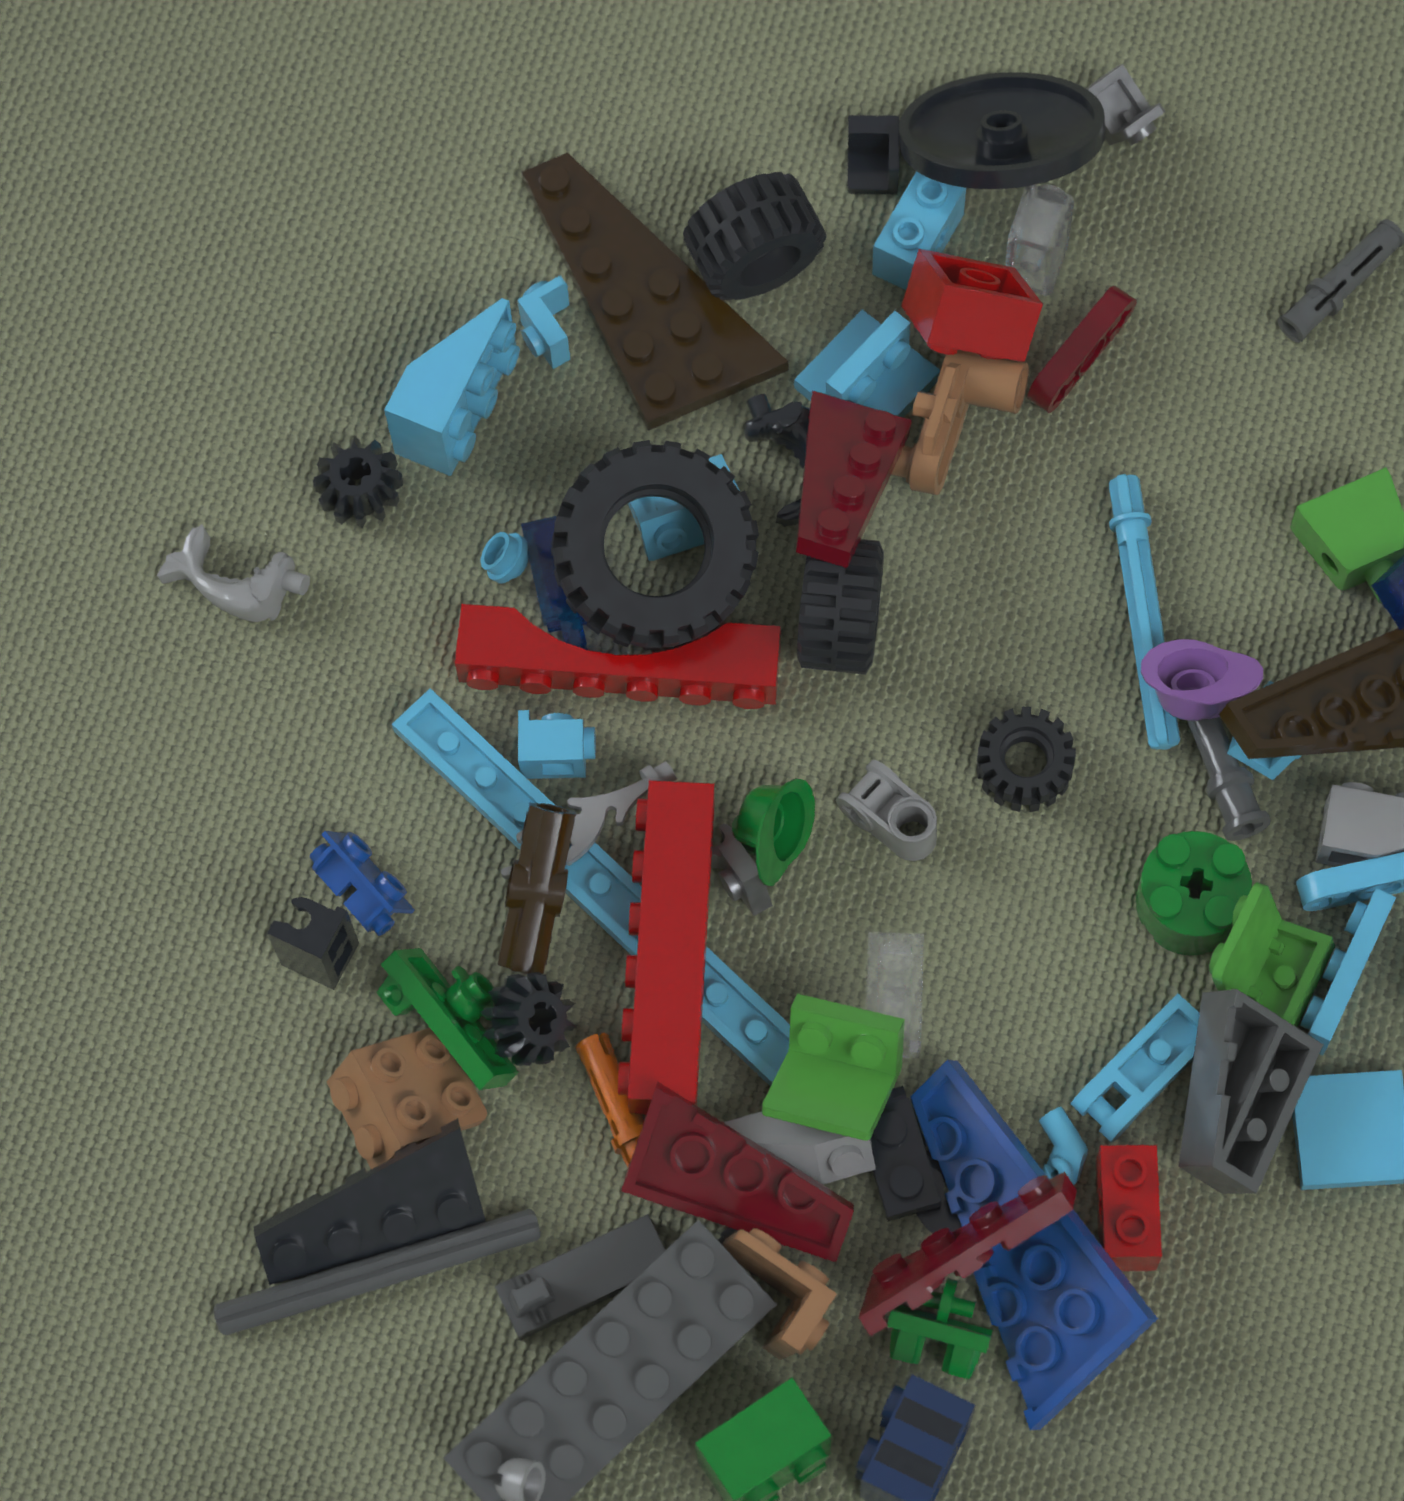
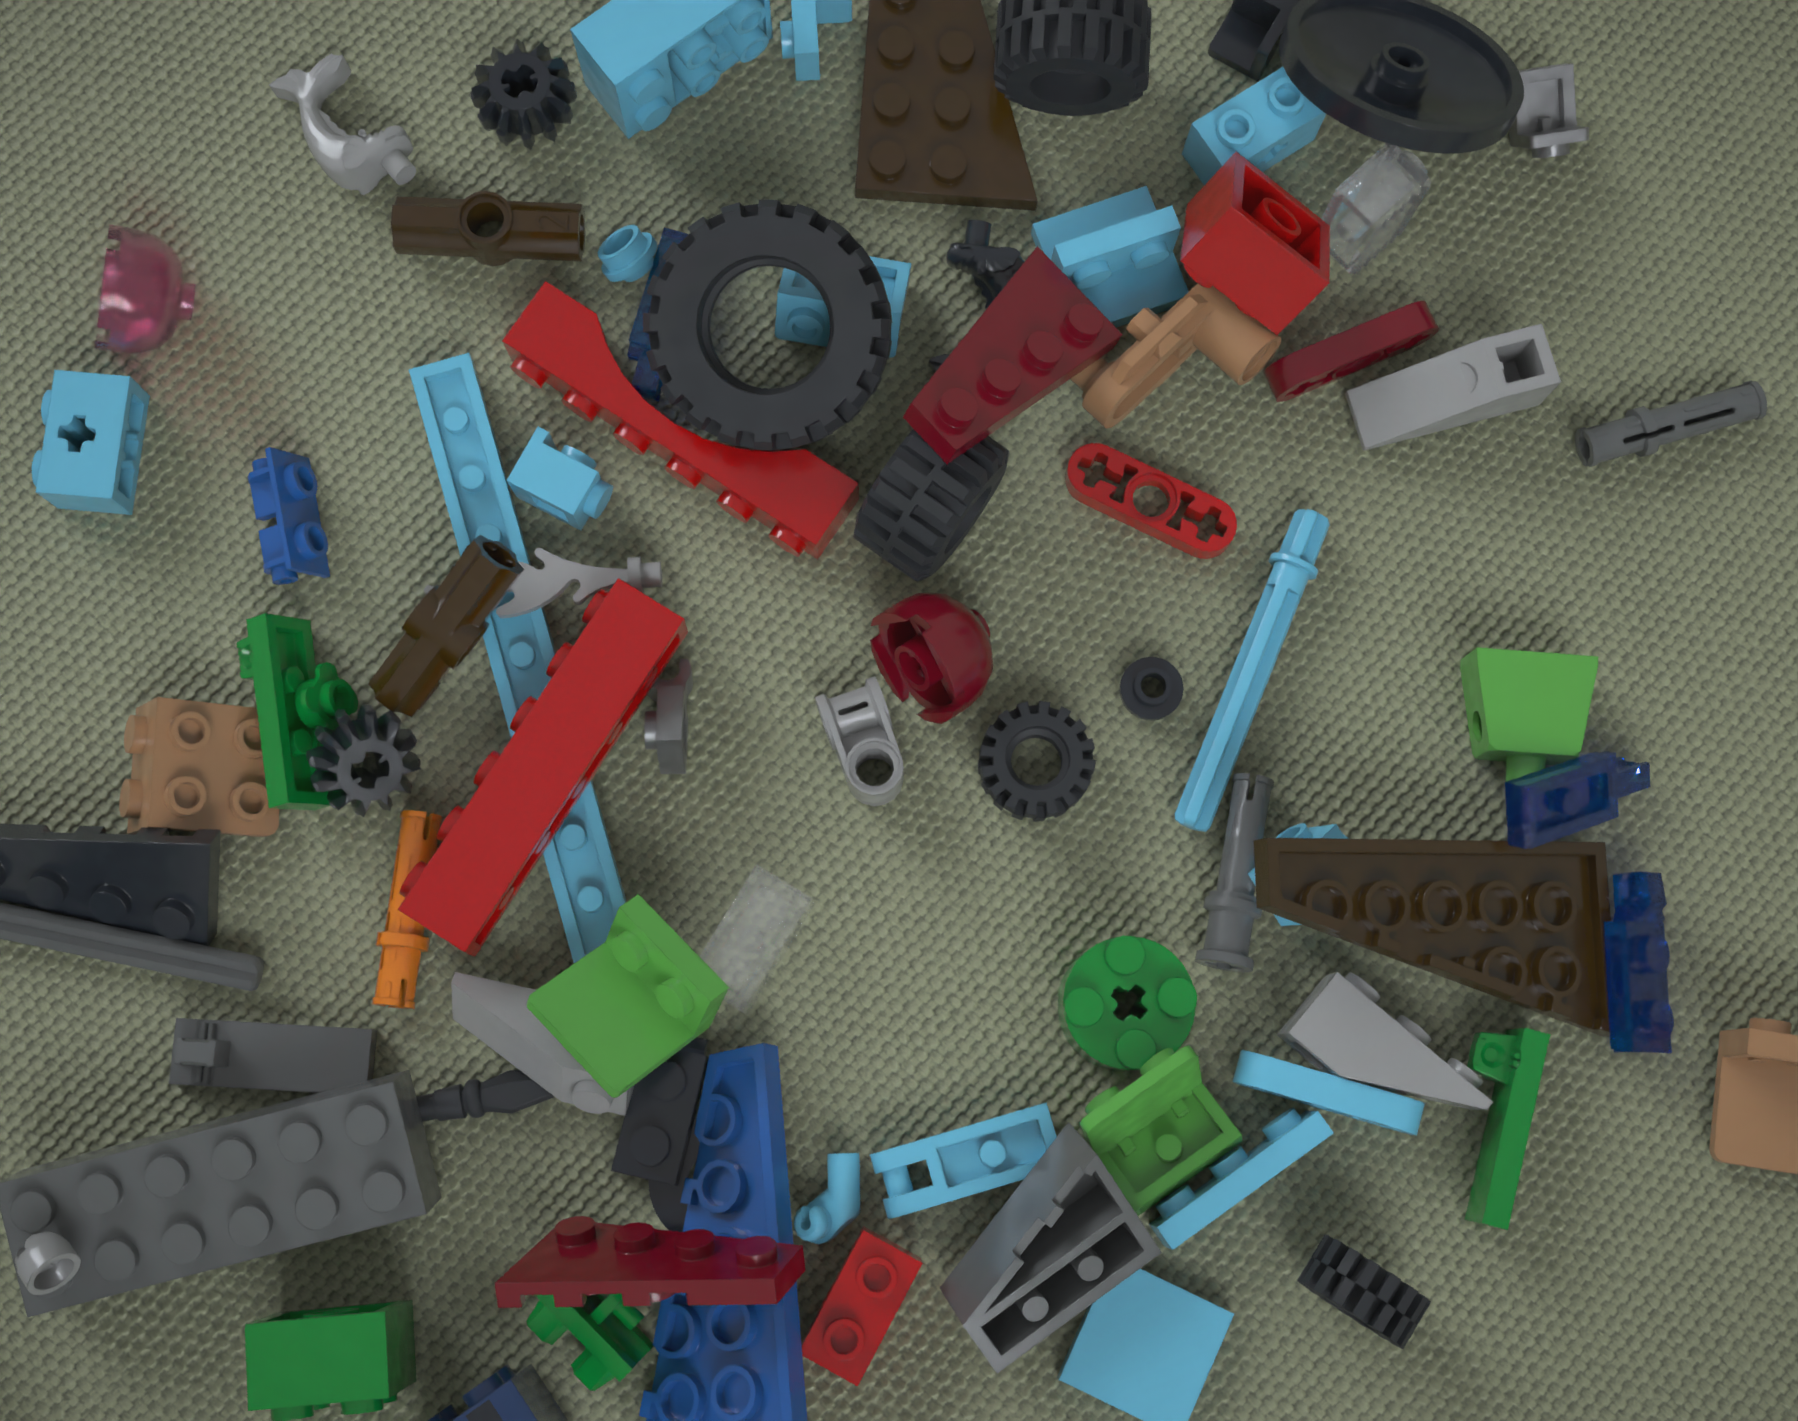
camera: 20 degrees right, 10 degrees up
(152, 775) = (141, 293): none -> clear pink cylinder
(171, 874) = (105, 469): none -> medium azure brick
(319, 949) = (195, 565): black hinge -> none
(420, 576) = (451, 227): none -> dark brown piece
(726, 1178) = (457, 1046): dark red wing -> none
(775, 826) = (730, 695): green piece -> none
(804, 1284) = (442, 1244): medium nougat bracket -> none
(906, 721) = (934, 652): none -> dark red cylinder
(983, 549) = (1144, 475): none -> red beam
(1074, 677) = (1143, 706): none -> black plate
(1173, 335) = (1456, 388): none -> light grey slope
(1198, 678) = (1262, 781): medium lavender piece -> none

